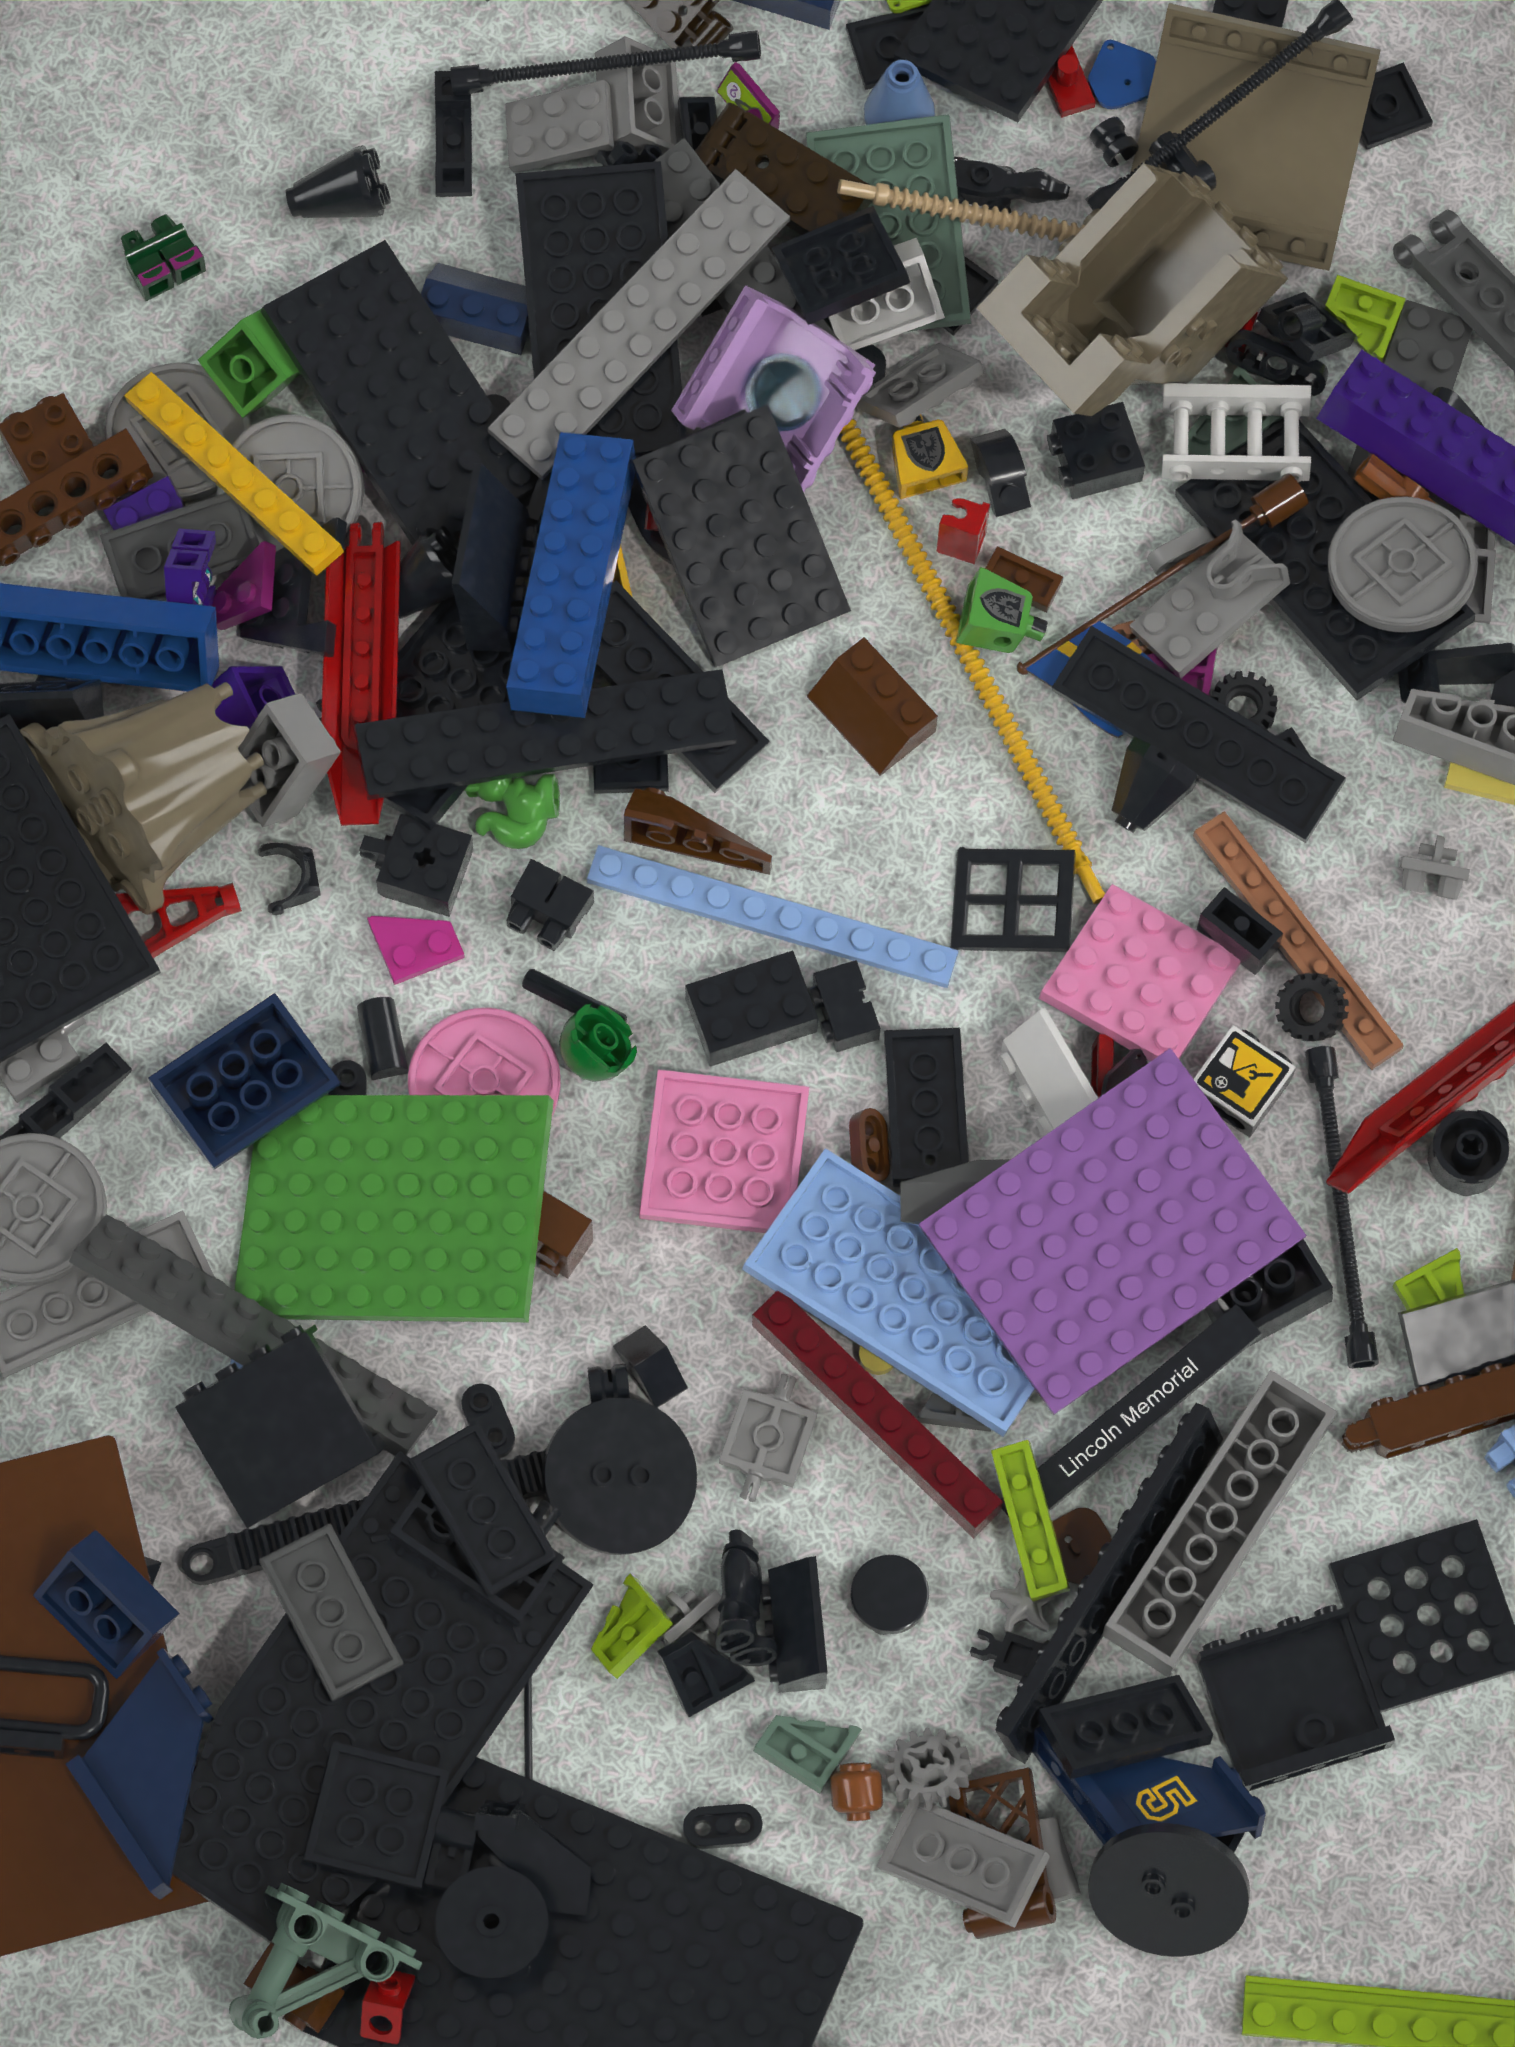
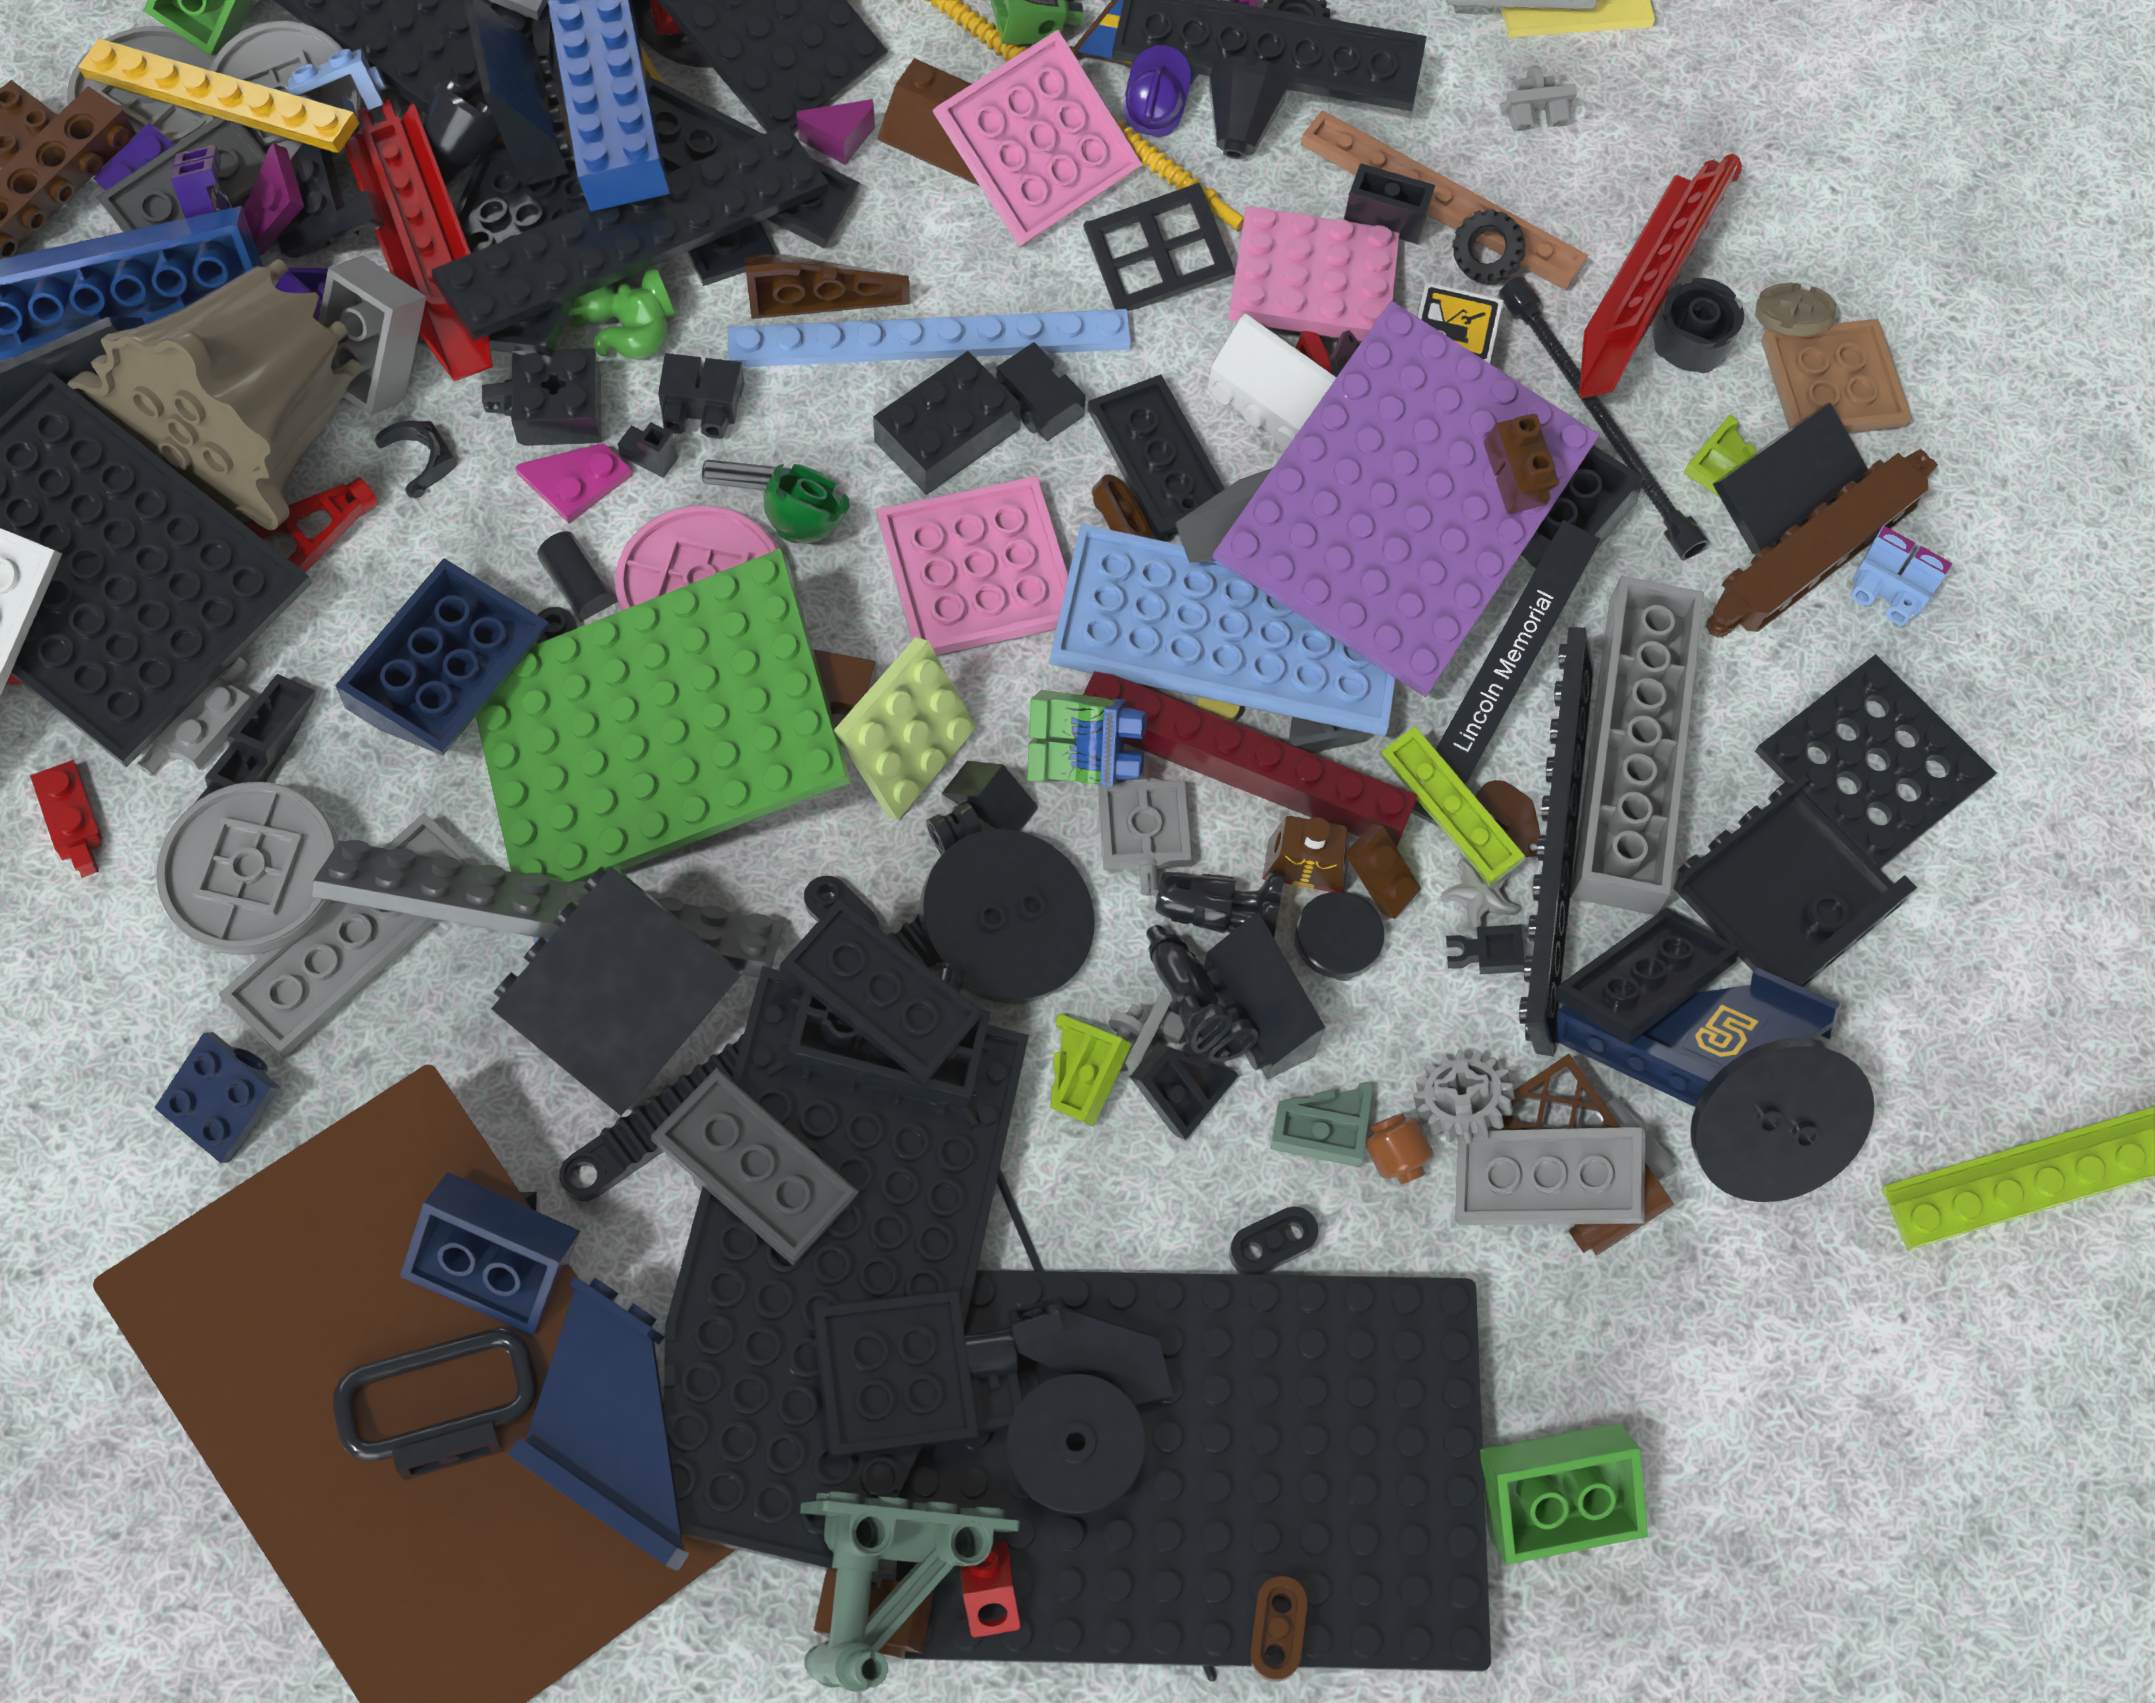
camera: 25 degrees left, 5 degrees down
(344, 485) = (342, 63): none -> light blue bracket
(485, 941) = (649, 448): none -> black piece
(598, 1286) = (906, 728): none -> yellowish green plate
(742, 1347) = (1083, 739): none -> hips
(772, 679) = (837, 128): none -> magenta slope
(793, 1525) = (1214, 903): none -> black piece
(893, 1518) = (1309, 853): none -> reddish brown torso
(943, 758) = (1037, 137): none -> bright pink plate
(946, 1555) = (1383, 871): none -> reddish brown plate
(1078, 739) = (1157, 91): none -> dark purple piece
(1213, 1244) = (1522, 462): none -> reddish brown hips

